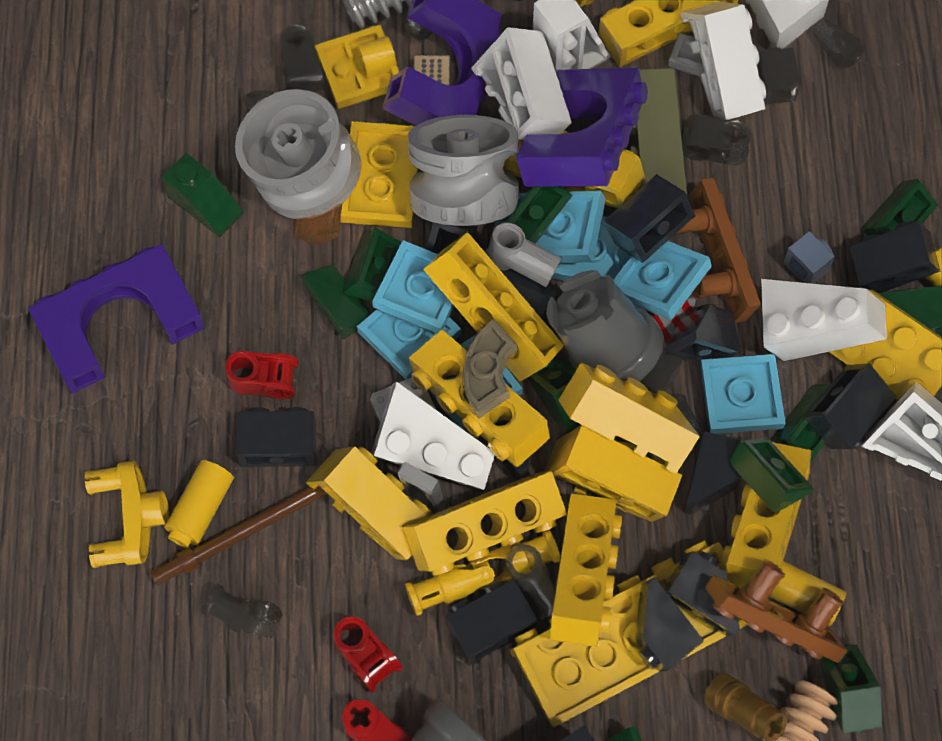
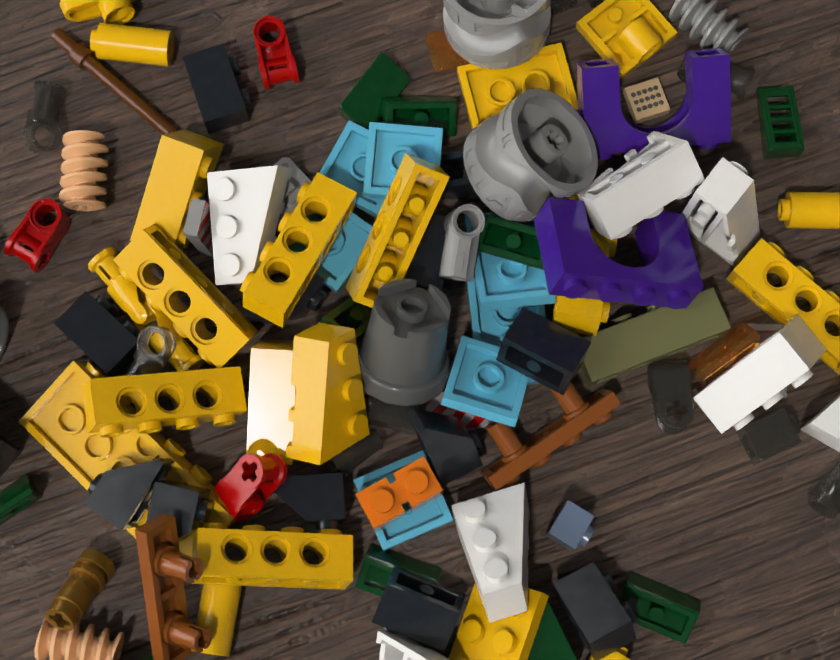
camera: 70 degrees right, 10 degrees up
(315, 589) = (81, 170): none -> light nougat piece
(485, 368) = (320, 242): dark tan tile -> none
(691, 84) = (723, 354): none -> clear orange slope
(693, 517) = (251, 484): none -> red piece
(747, 398) = (412, 484): none -> orange piece
(769, 473) = (311, 546): dark green slope -> none

